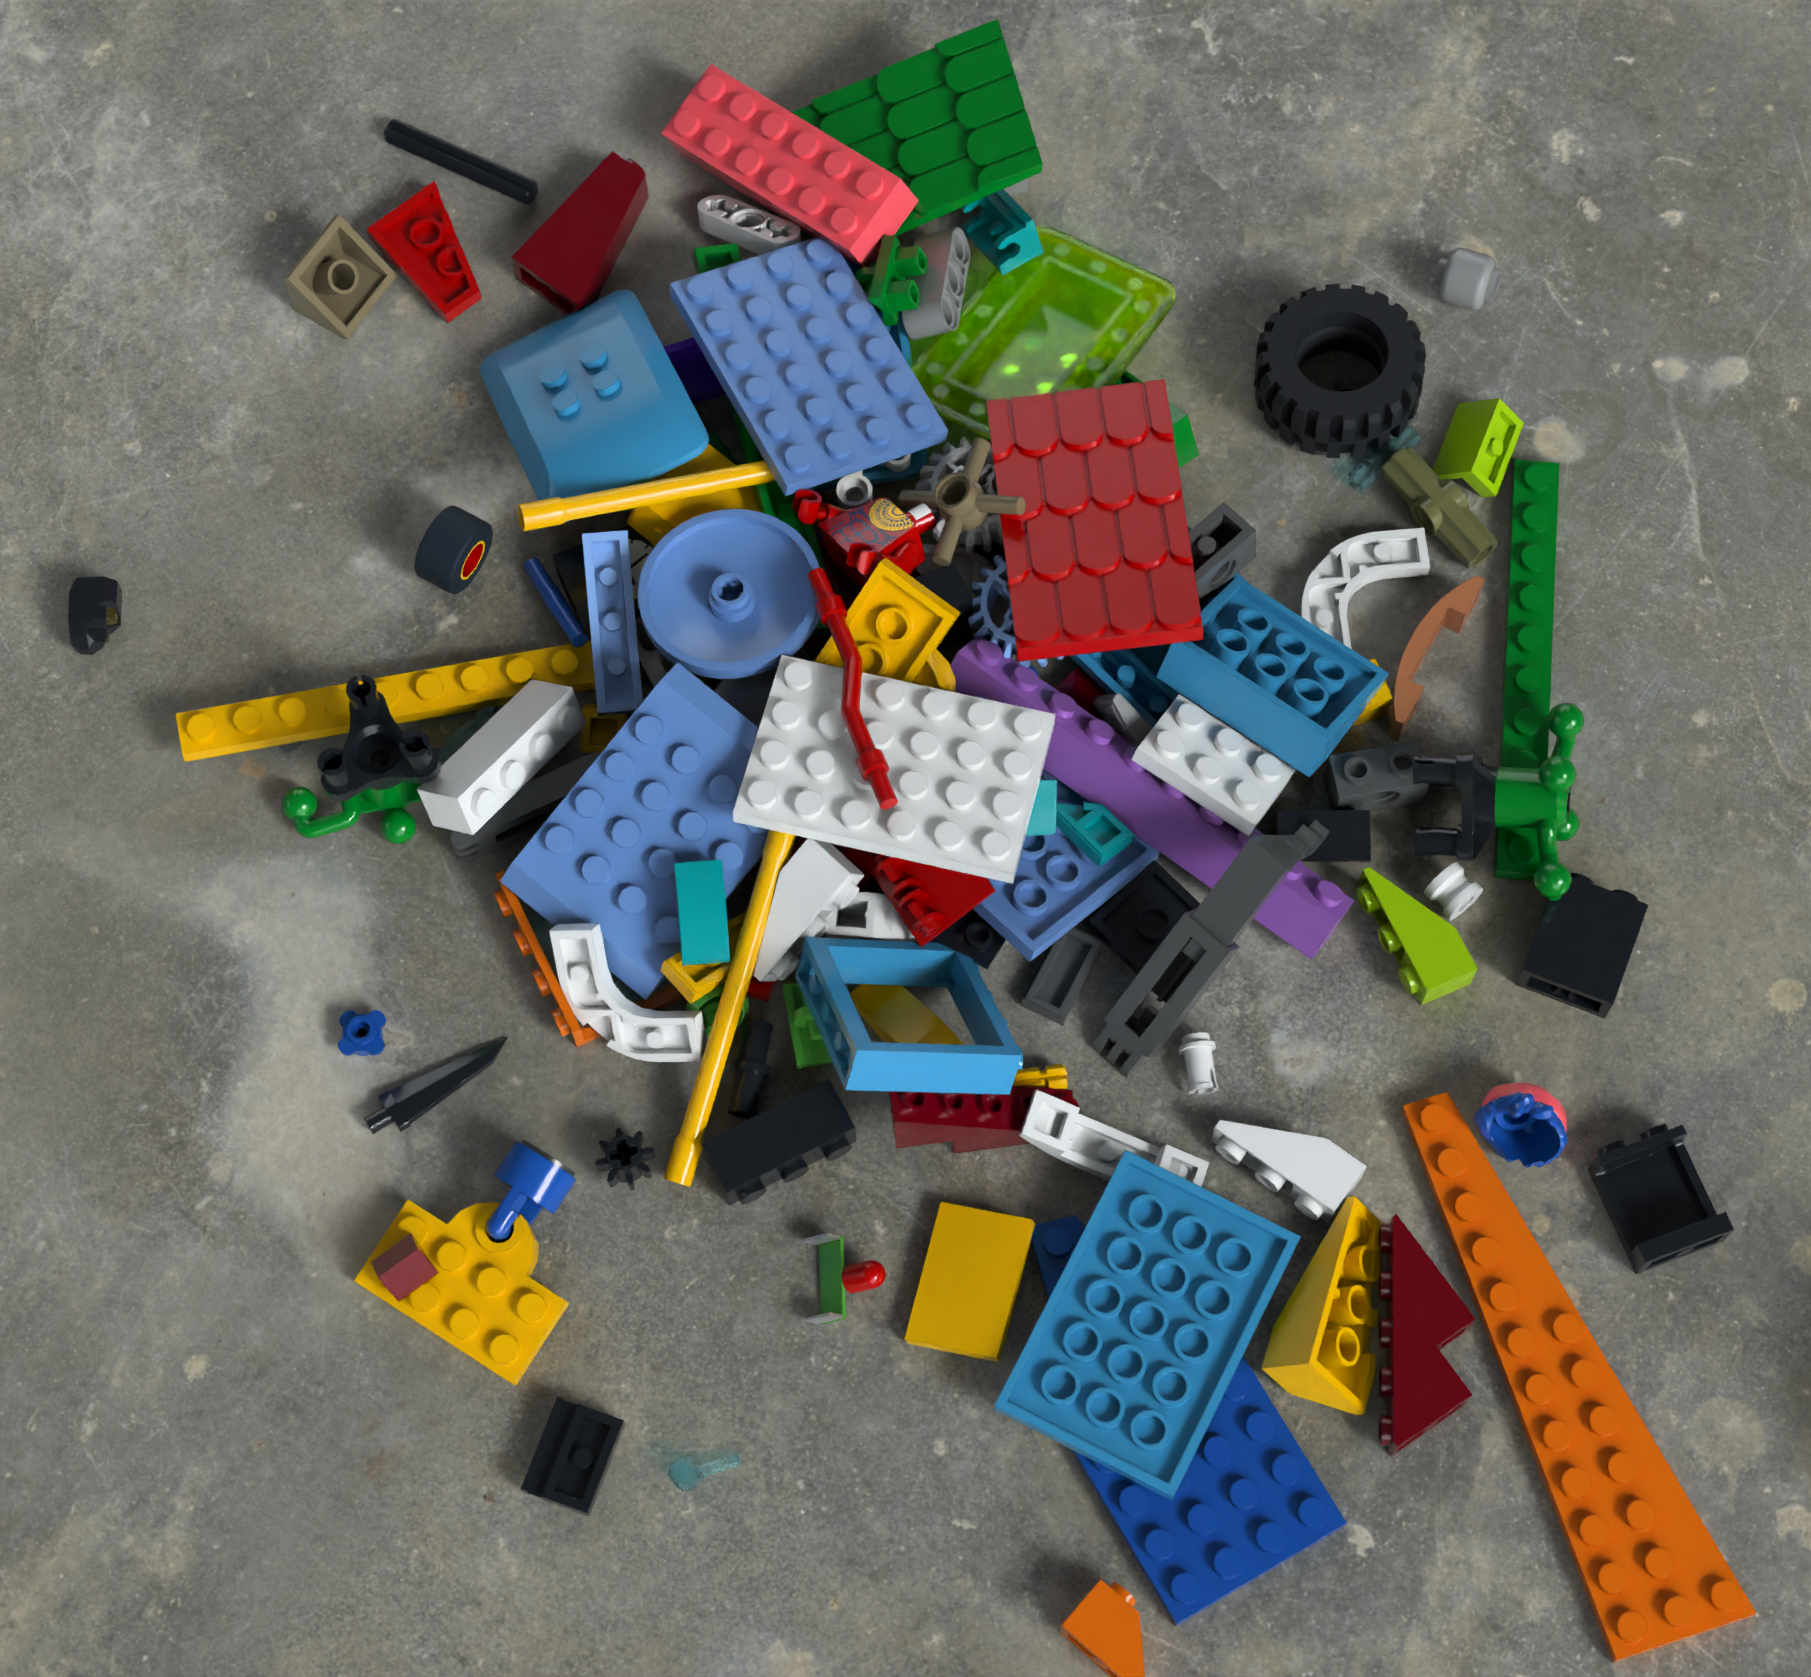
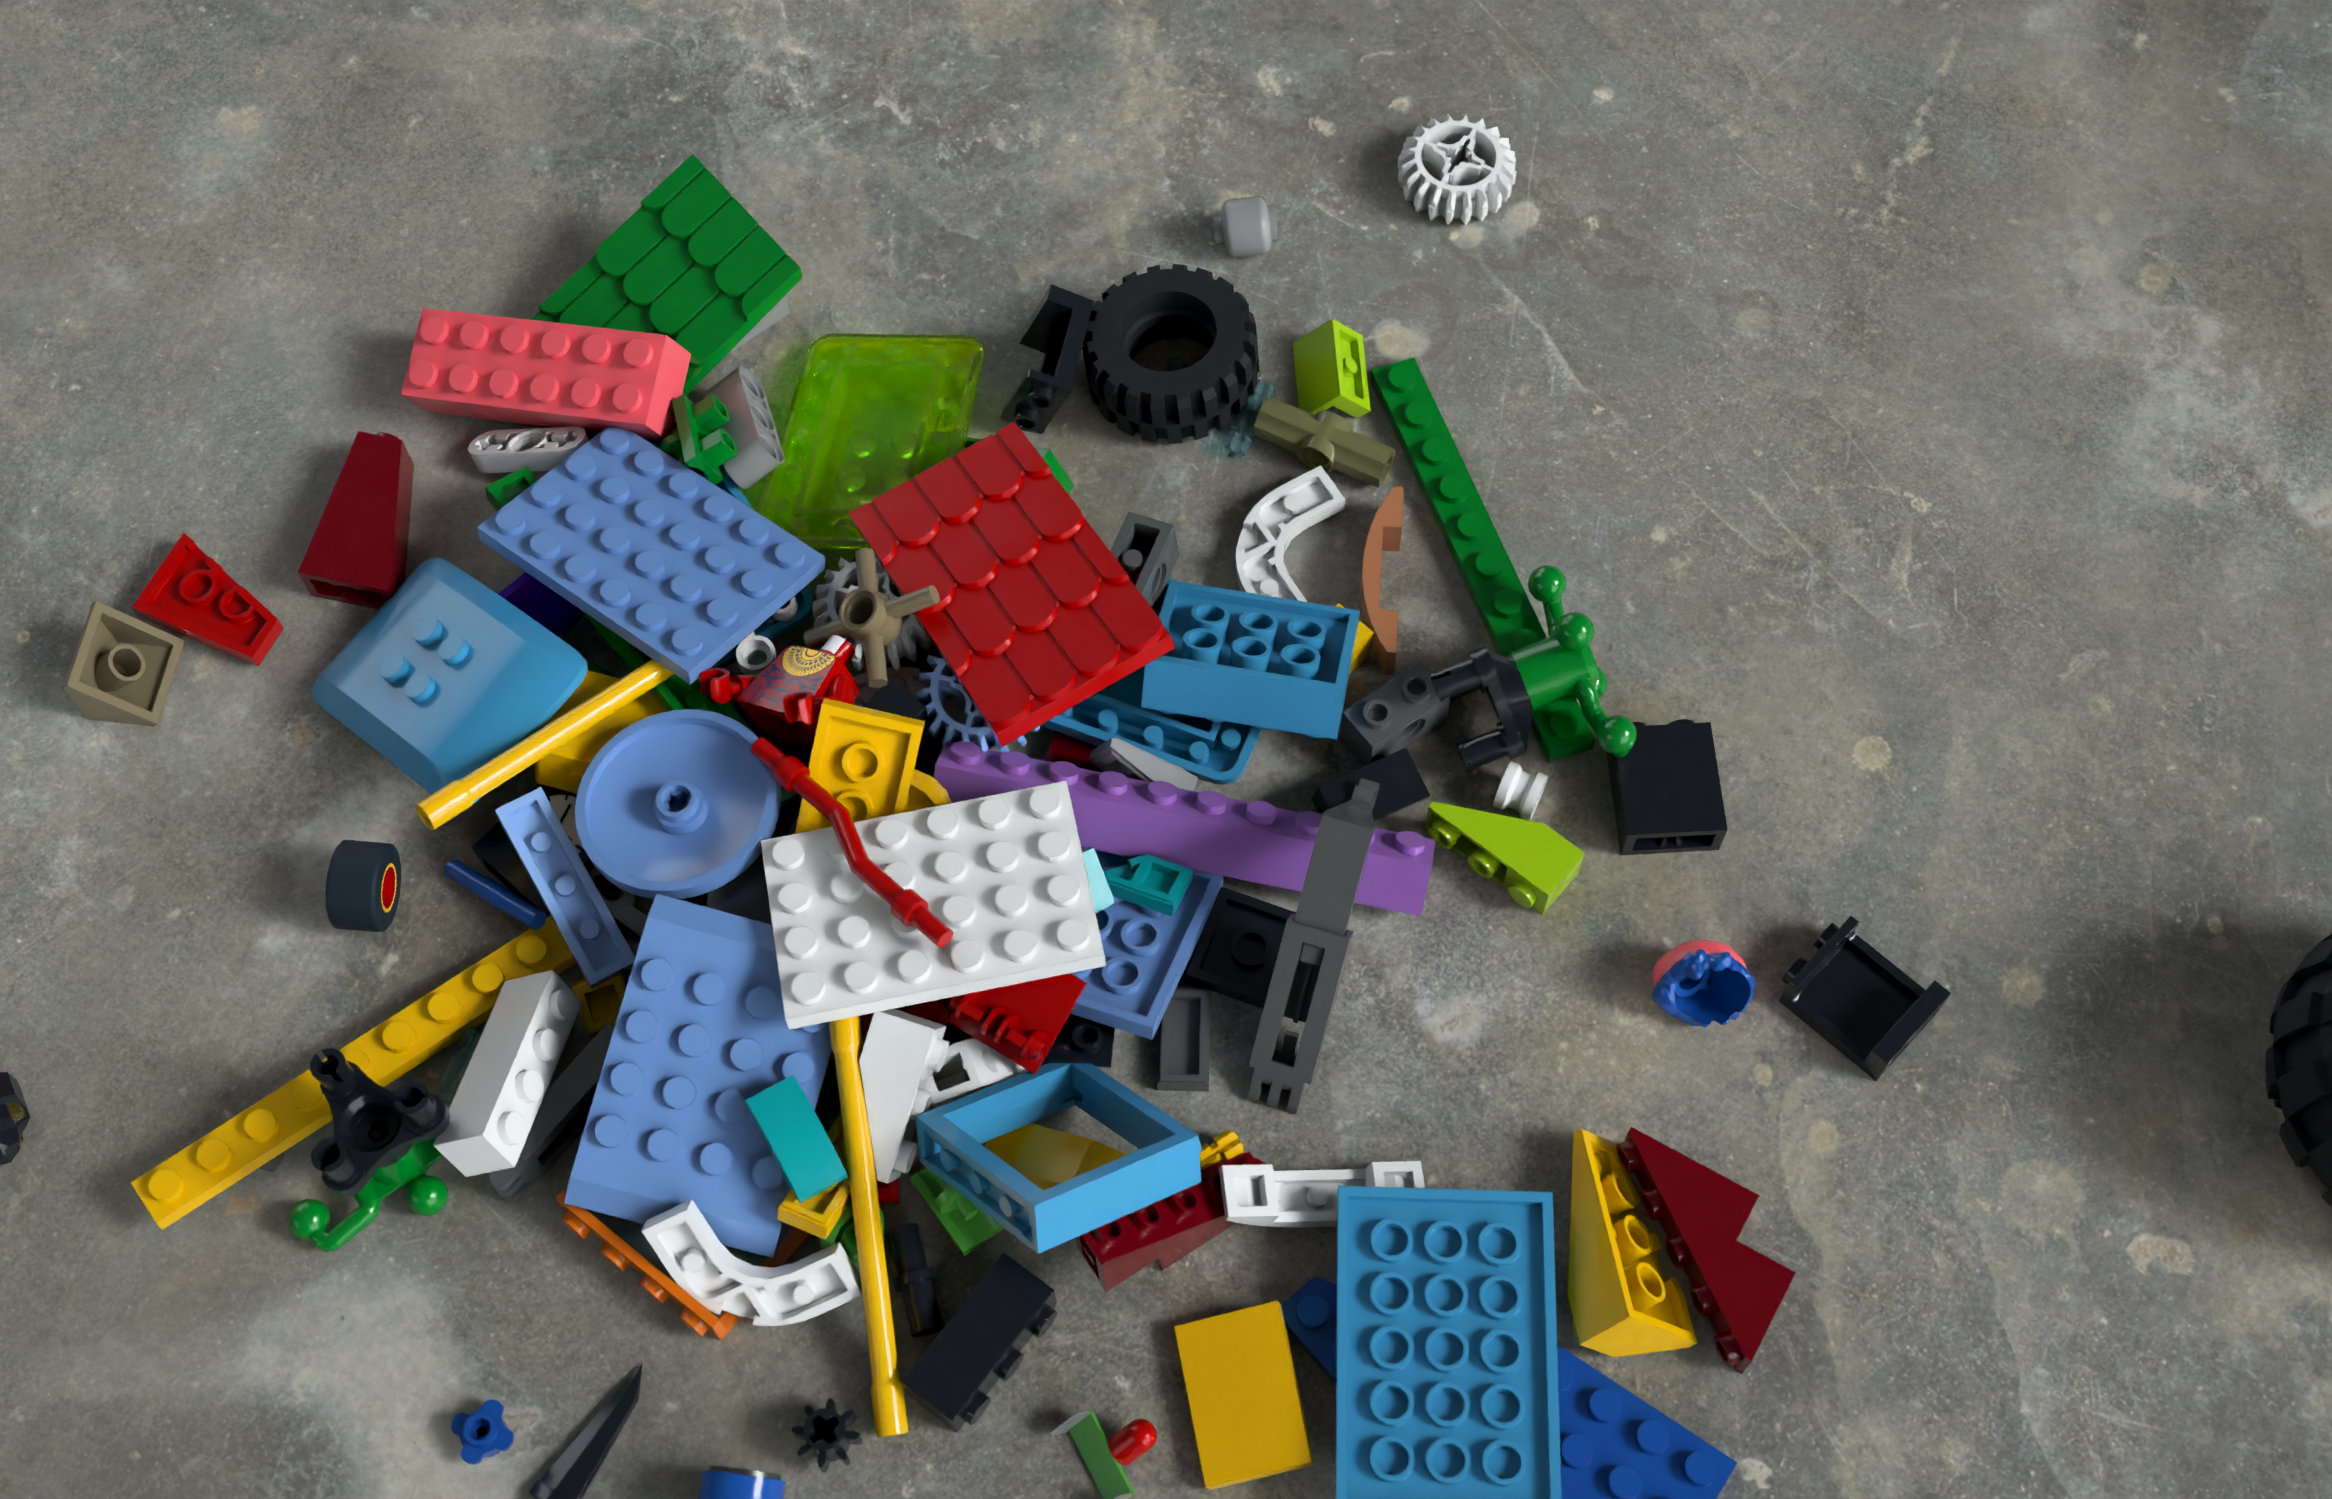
camera: 25 degrees left, 5 degrees down
(461, 161) = (203, 504): black axle -> none
(1002, 231) = (785, 354): teal hinge -> none
(1199, 1063) = (1362, 1066): white pin -> none
(1213, 764) = (1239, 767): white plate -> none
(1250, 307) = (1058, 332): none -> black panel
(1298, 1164) = (1513, 1123): white slope -> none
(1617, 1501) = (1983, 1316): orange wing -> none
(1690, 318) = (1456, 169): none -> white gear

